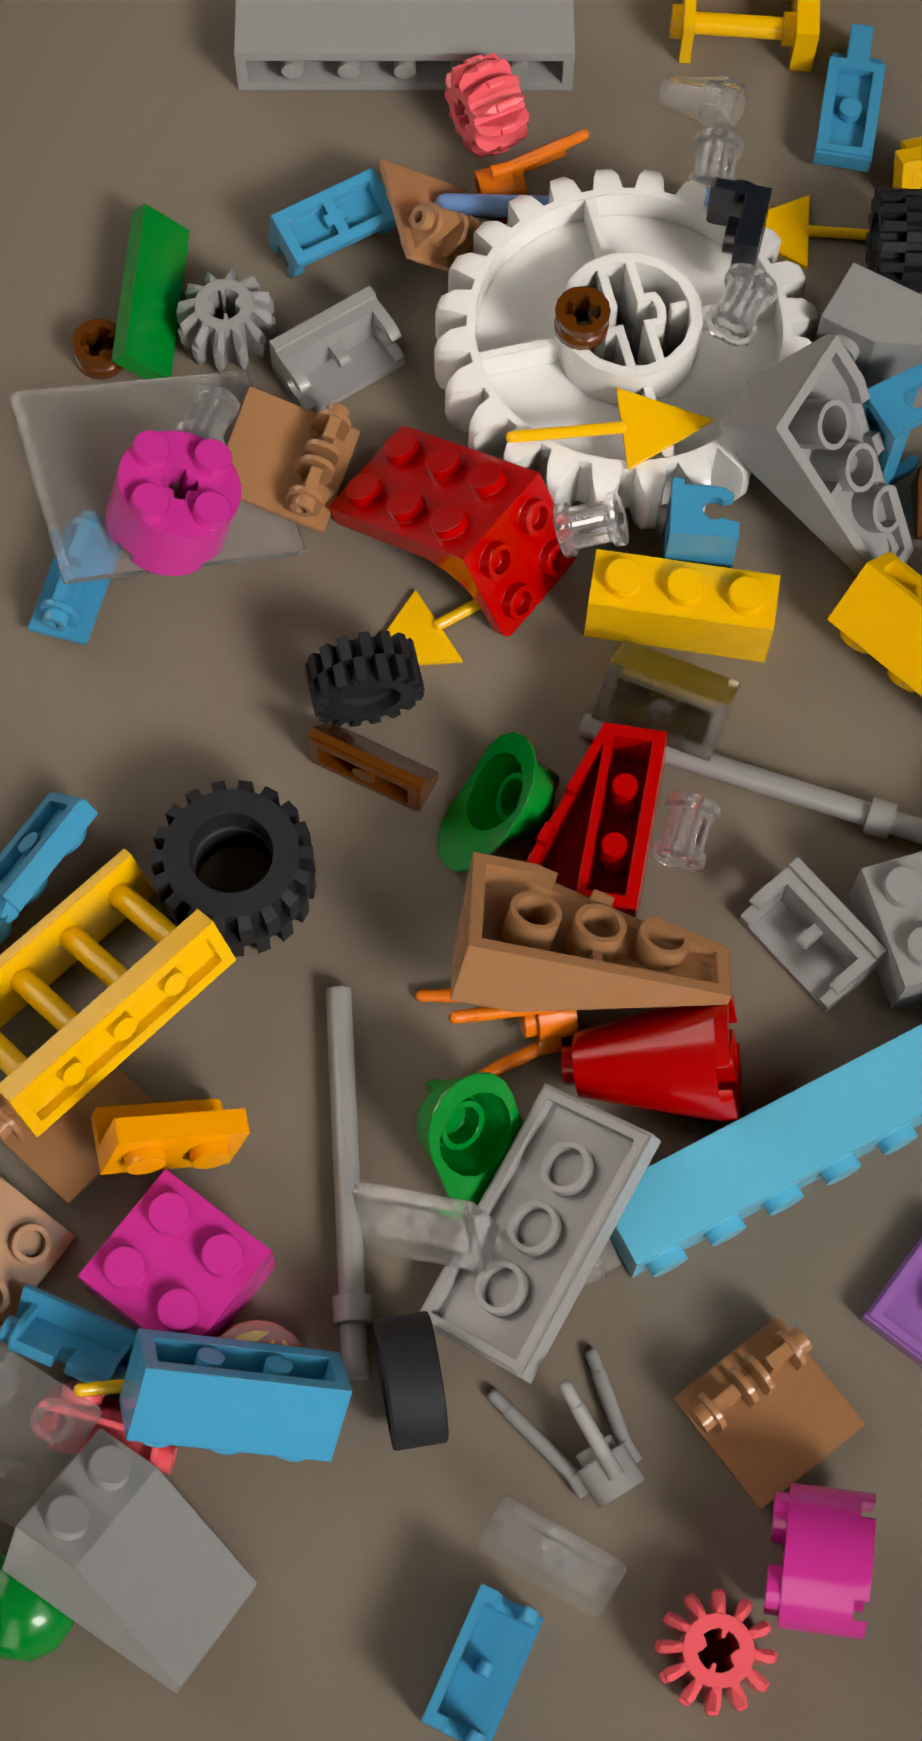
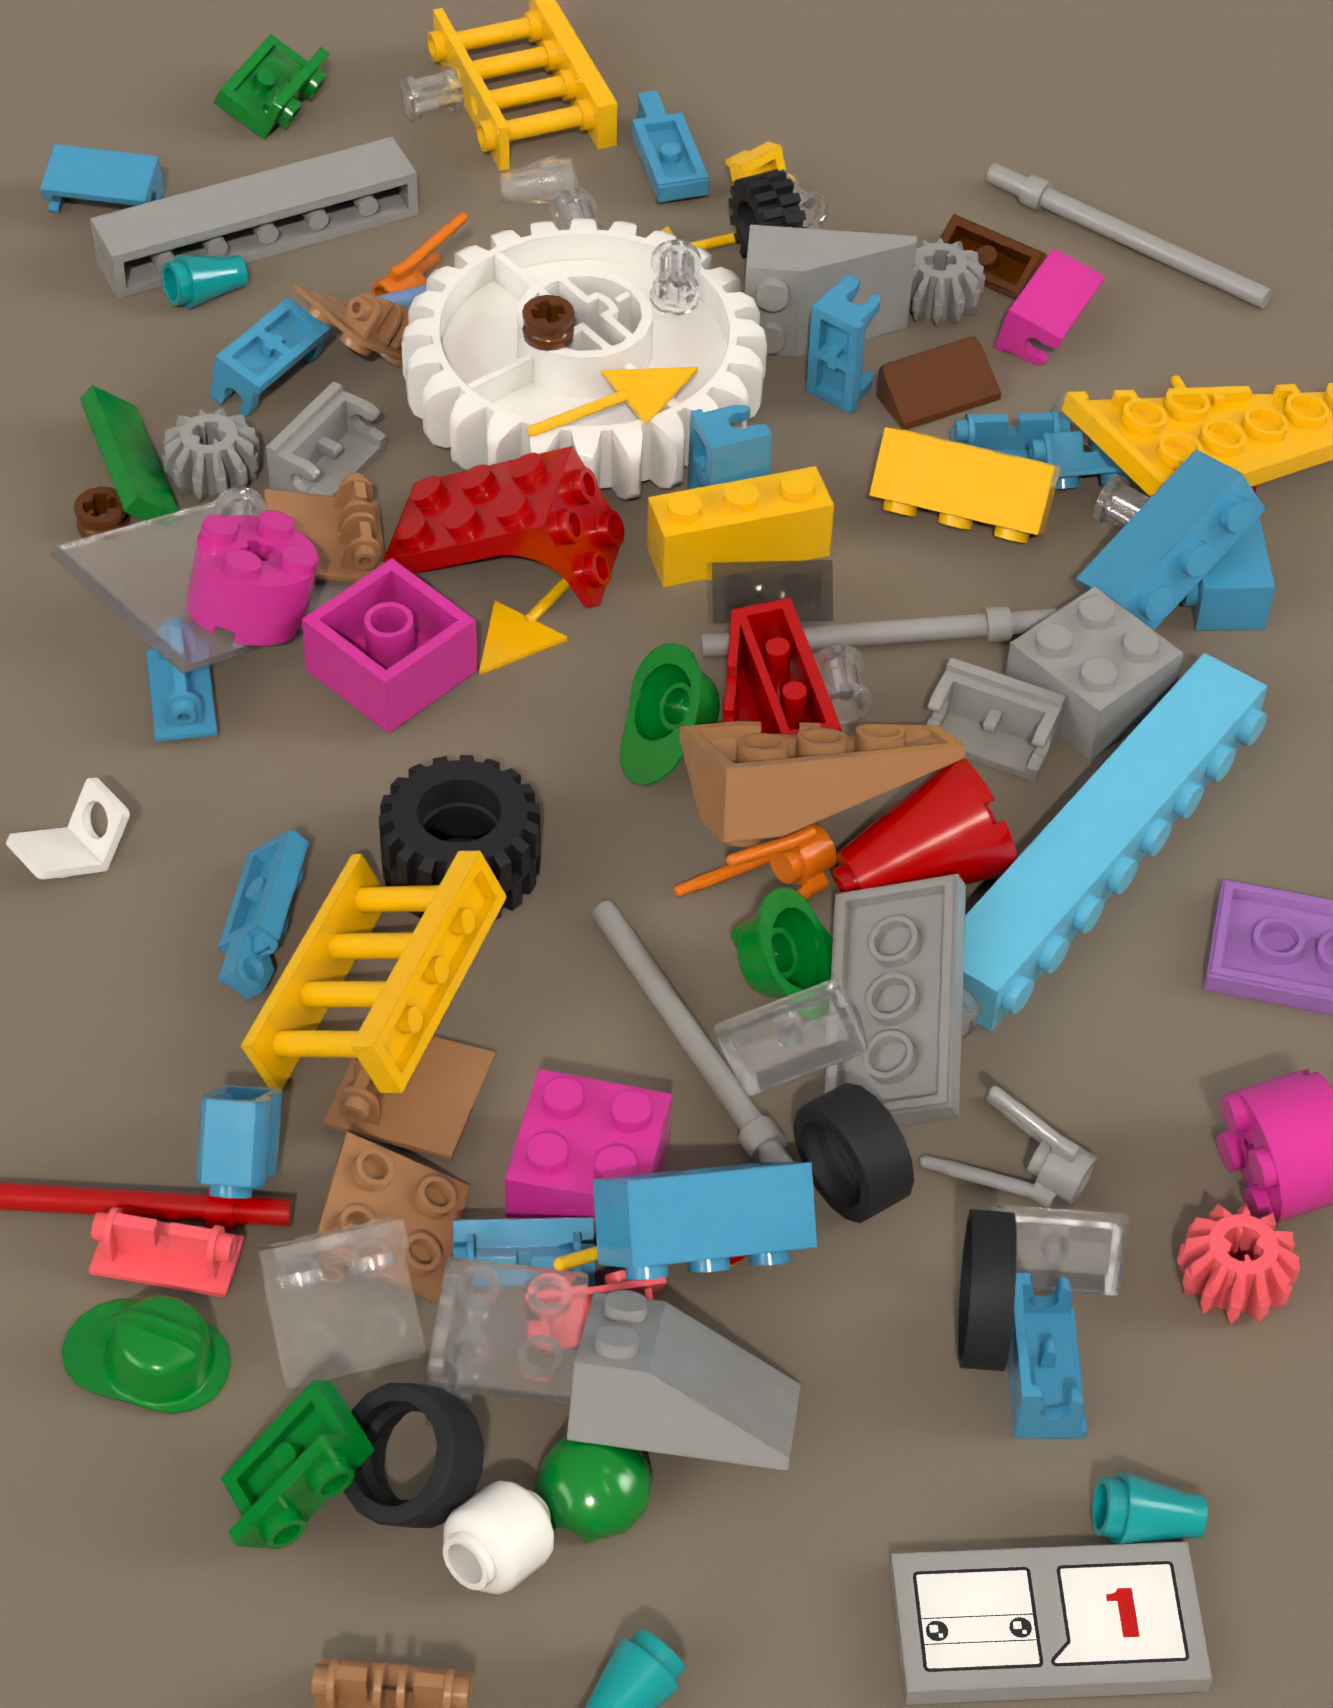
camera: 25 degrees left, 20 degrees down
(167, 1136) = (514, 1047): light orange bracket -> none
(271, 614) = (390, 645): none -> dark pink brick
(319, 100) = (197, 279): none -> teal cone
(364, 678) = (497, 659): black tyre -> none
(371, 765) = (534, 733): reddish brown slope -> none
(449, 1592) = (987, 1290): none -> black tyre
(486, 105) = (358, 232): coral gear -> none
(591, 524) = (614, 482): clear bush -> none
(744, 212) = (638, 214): black bracket -> none
(769, 1411) = (1169, 1074): medium nougat hinge -> none
(813, 449) = (792, 364): light grey wedge -> none

